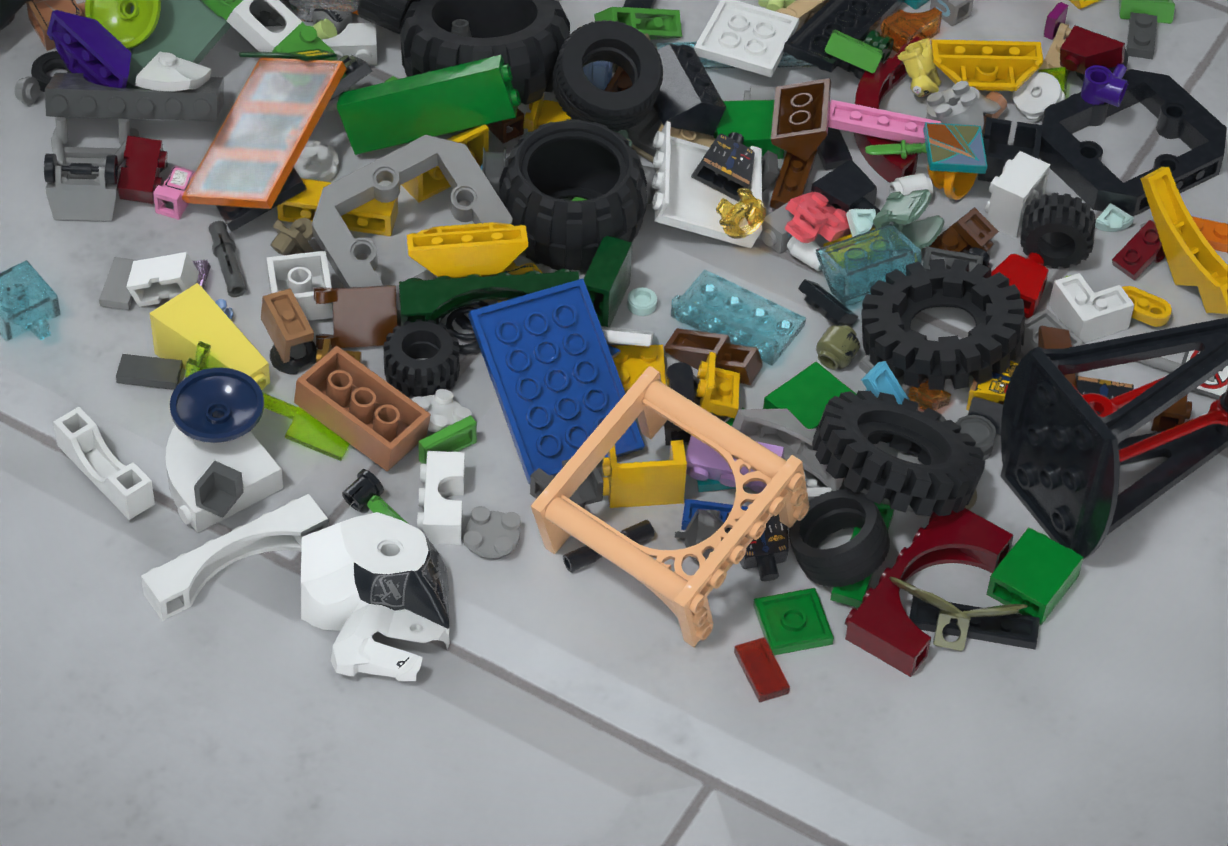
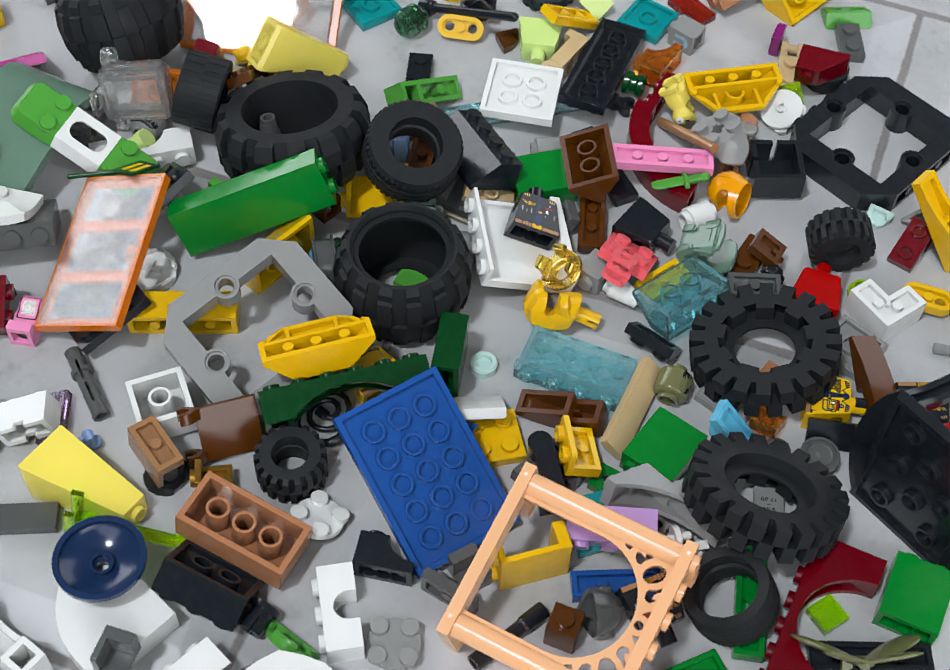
camera: 10 degrees left, 5 degrees up
(293, 240) = (149, 359): dark tan hips -> none
(315, 452) = (206, 585): none -> black slope
(450, 438) = (332, 547): bright green tile -> none
(491, 459) = (378, 560): none -> black arch
(666, 536) = (563, 627): none -> reddish brown brick
(739, 258) = (564, 313): none -> yellow piece
(788, 360) = (631, 408): none -> tan tile
(853, 51) = (619, 93): bright green slope -> none
(860, 220) = (664, 256): light aqua tile -> none
(919, 104) = (688, 135): none -> medium nougat bar
(941, 578) = (827, 614): none -> clear neon green tile
(955, 148) = (733, 174): tile -> none
(1016, 187) = (792, 207): white brick -> none
(1104, 86) = (841, 95): dark purple piece -> none

